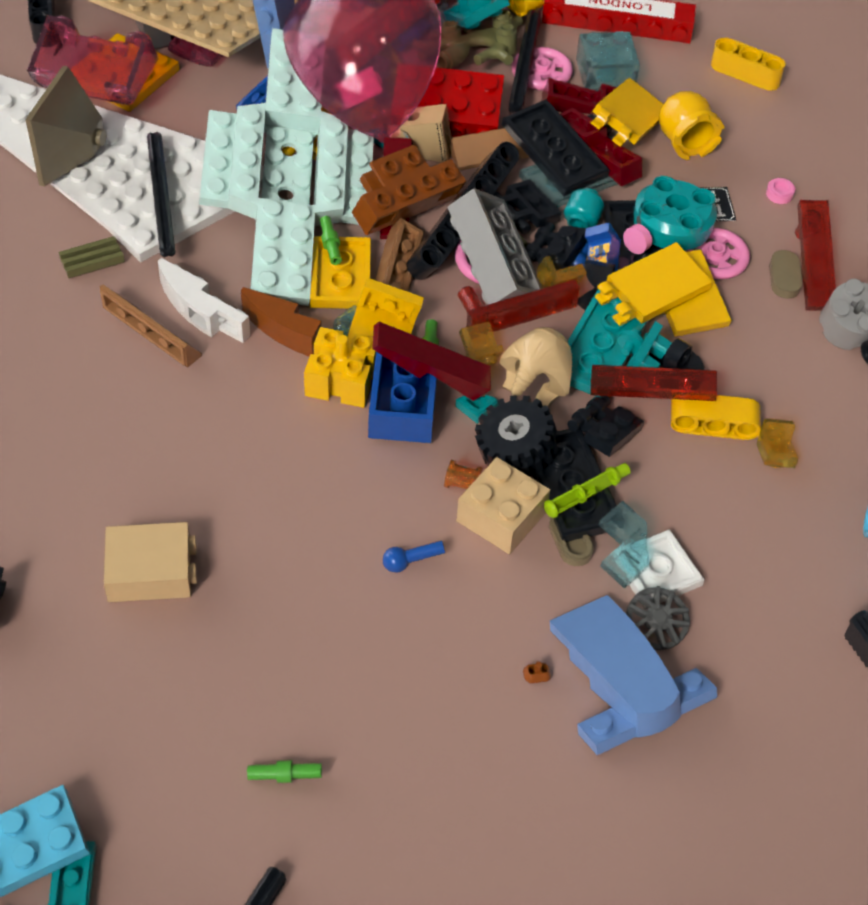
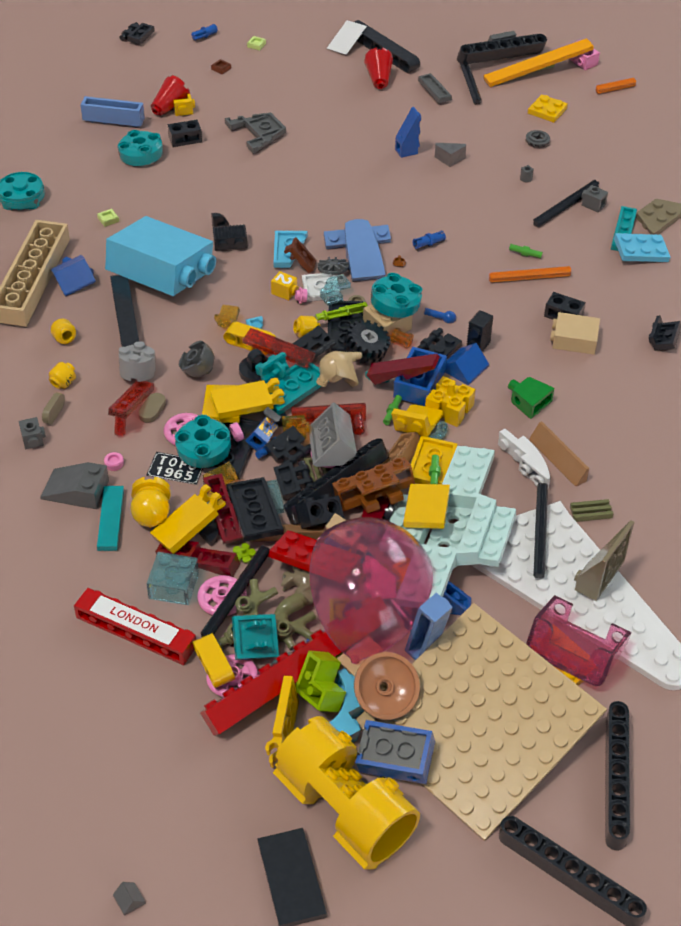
camera: 160 degrees left, 5 degrees down
(179, 607) = (563, 304): none -> black brick
(211, 411) = (530, 395): none -> green torso
(261, 705) = (530, 274): none -> orange axle
(281, 320) = (477, 434): dark orange slope -> none
(323, 162) = (426, 506): none -> yellow tile
(326, 496) = (480, 329): none -> black brick
(341, 456) = (467, 364): none -> blue slope
(384, 483) = (444, 345): none -> black plate
(469, 147) = (319, 508): none -> black brick
(481, 343) = (363, 394): clear yellow bracket -> none
(497, 493) = (396, 296): none -> teal piece
(497, 743) = (429, 239): none -> blue pin
(584, 208) = (257, 466): teal head -> none
(617, 184) = (227, 471): none -> clear yellow bracket
(638, 453) = (304, 325): none -> yellow head
(680, 526) = (301, 295): none -> bright pink plate
(719, 537) = (284, 285): none -> yellow brick
(724, 602) = (299, 252): none -> copper plate
(726, 455) = (255, 322): none -> medium azure tile
(736, 128) = (110, 518): none -> teal tile
(747, 64) = (66, 556): yellow beam -> none
(764, 338) = (197, 360): none -> dark grey cylinder
(769, 642) = (283, 239): none -> medium azure wing
(799, 143) = (77, 485): none -> dark grey slope

